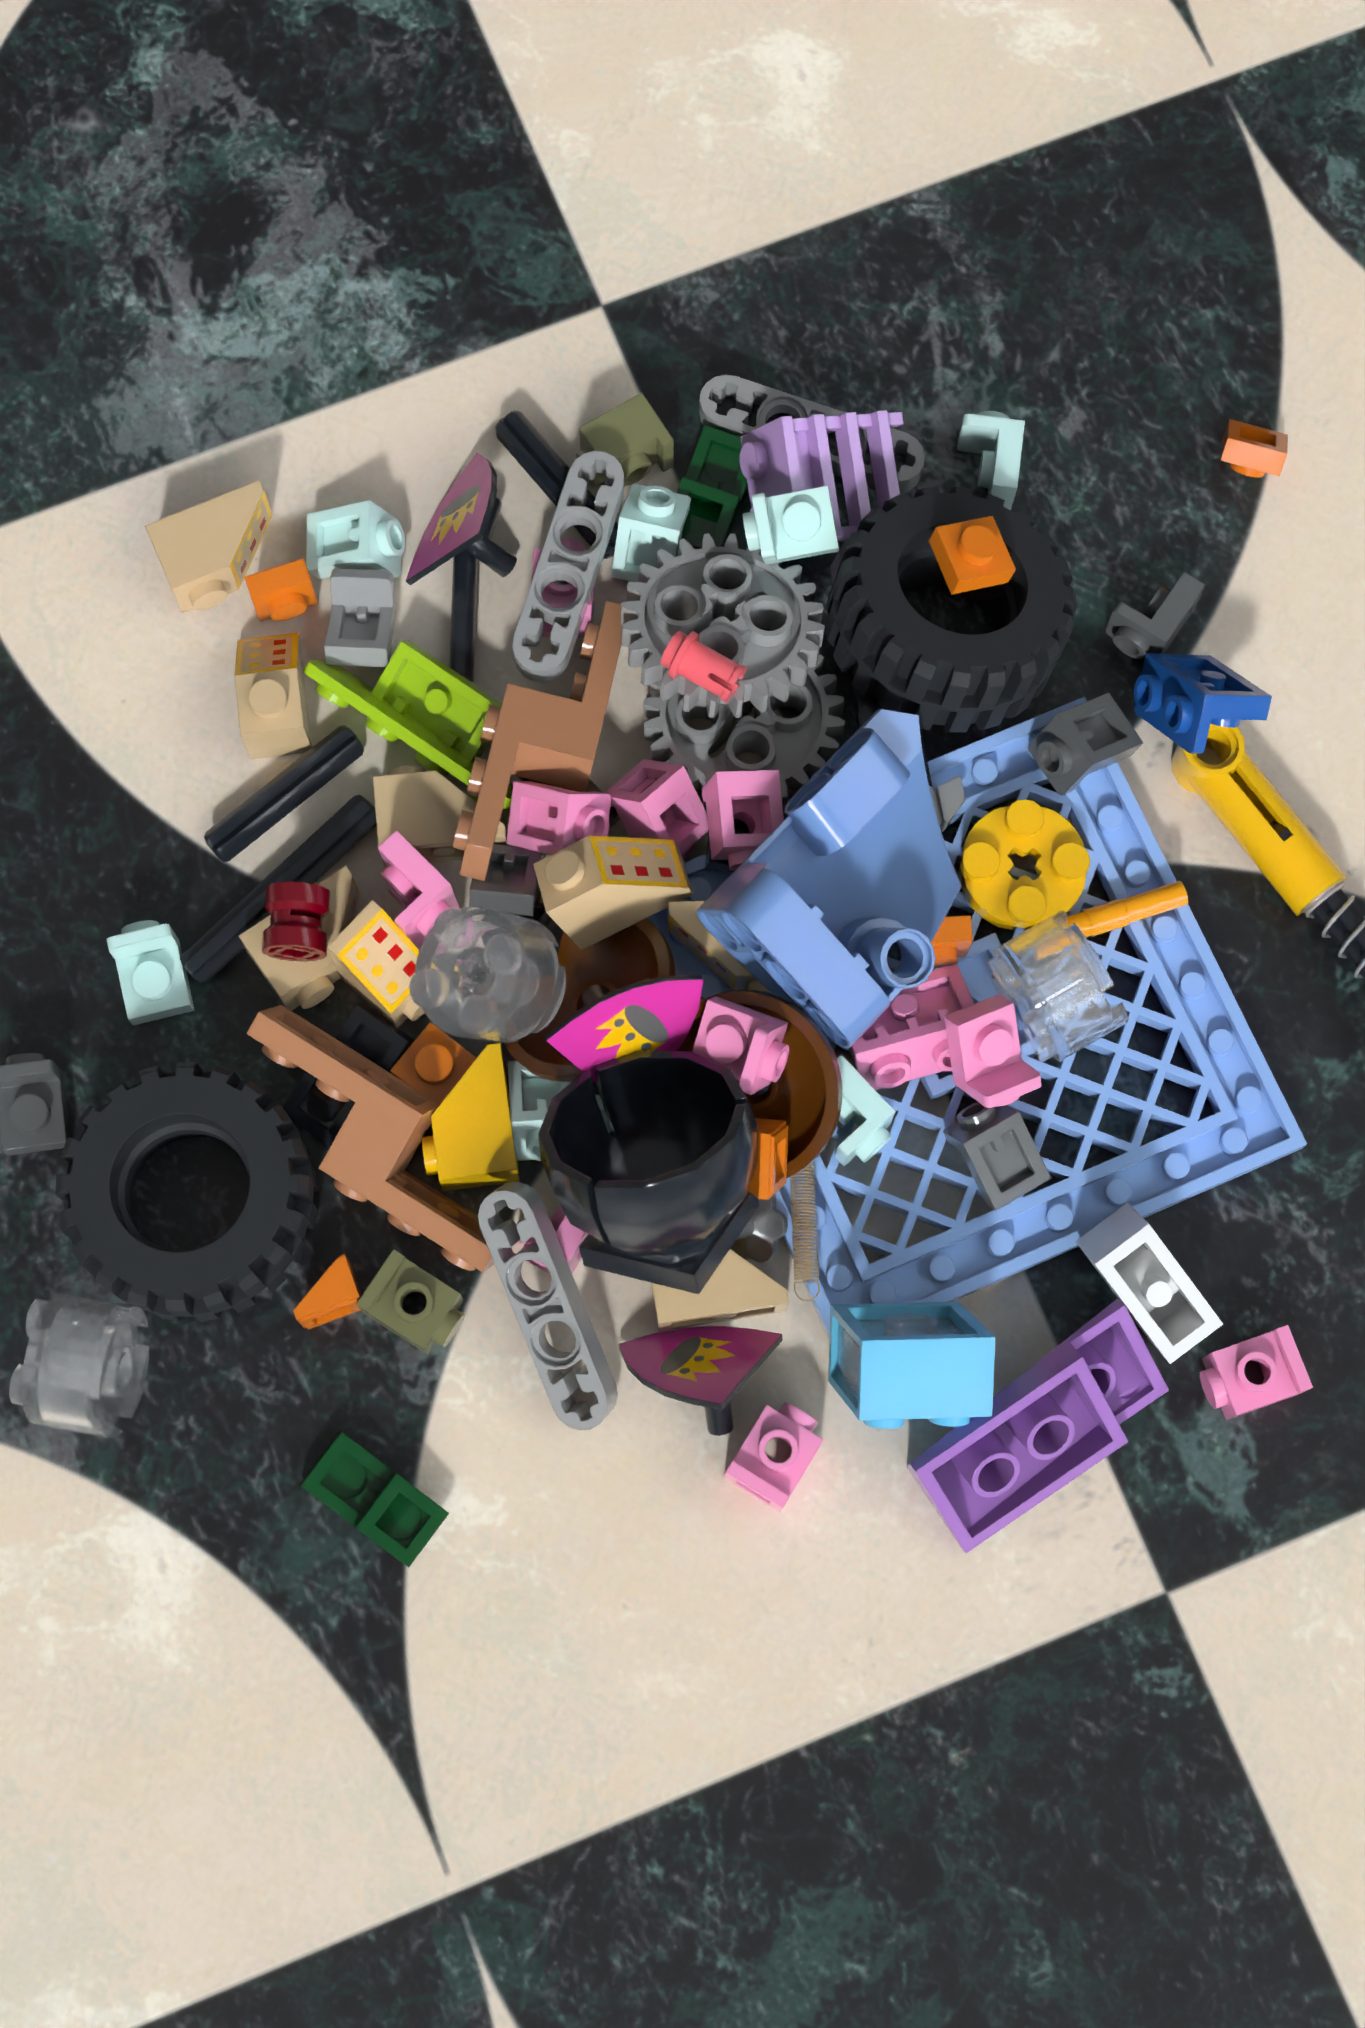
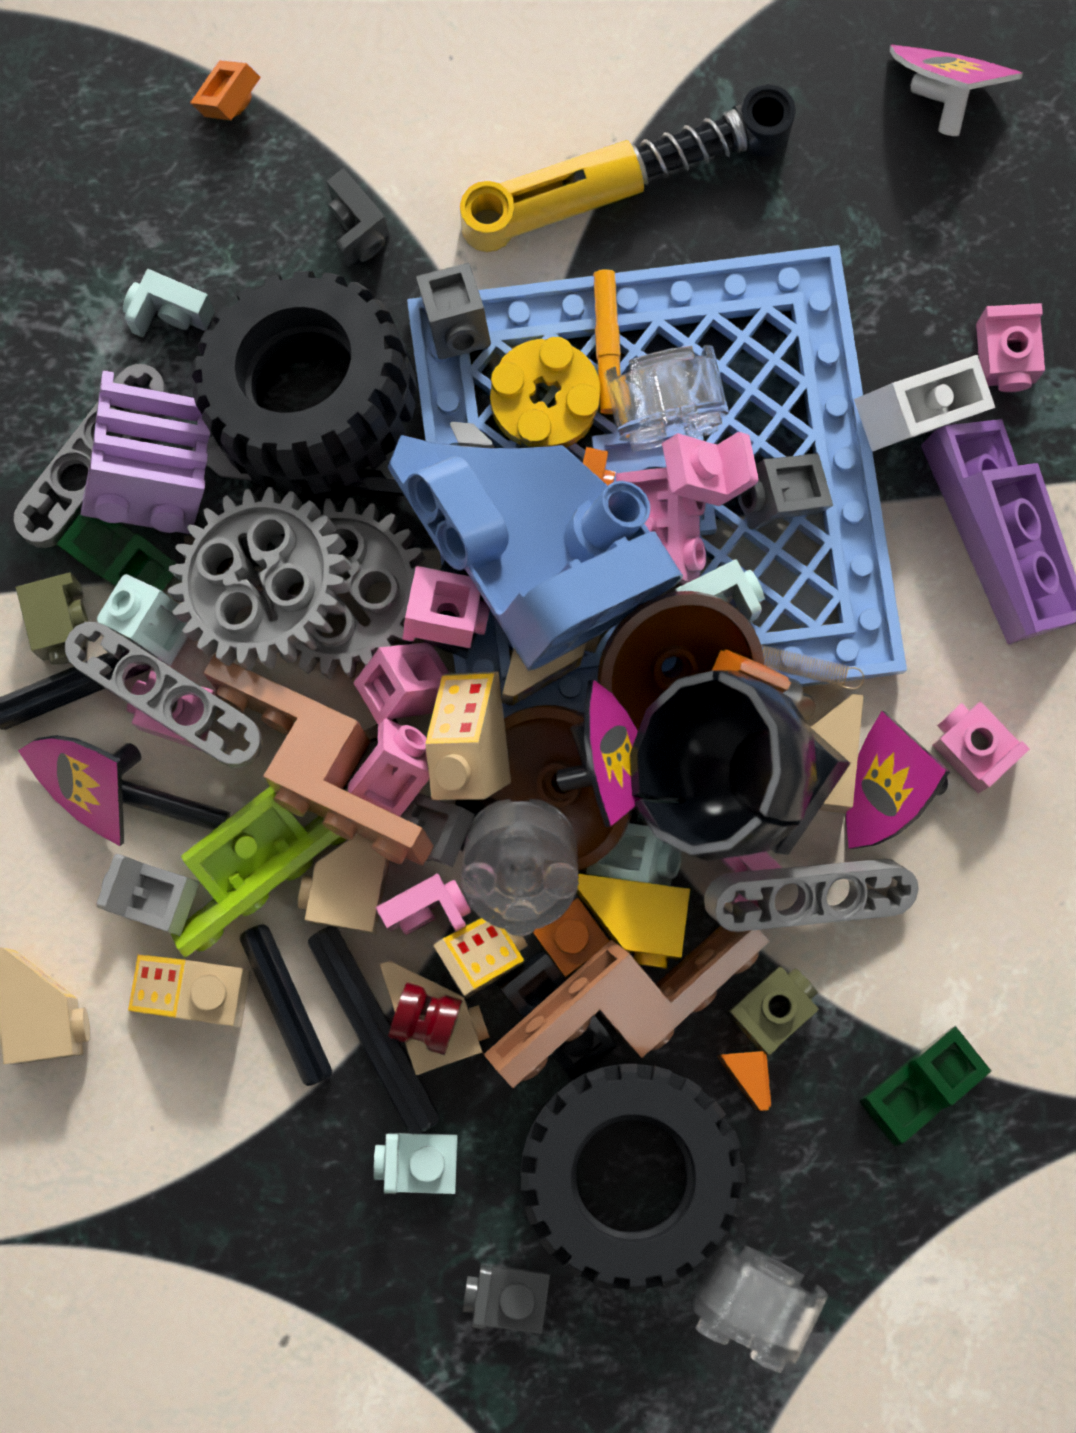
camera: 75 degrees left, 5 degrees up
(281, 591) = (99, 957): orange plate -> none
(354, 538) = (69, 881): light aqua bracket -> none
(702, 665) = (306, 601): coral pin -> none
(743, 1042) = (652, 664): bright pink bracket -> none
(791, 525) = (193, 490): light aqua bracket -> none
(911, 1362) = (944, 609): medium azure piece -> none
(972, 555) = (275, 344): orange plate -> none
(1190, 692) = (440, 208): blue bracket -> none

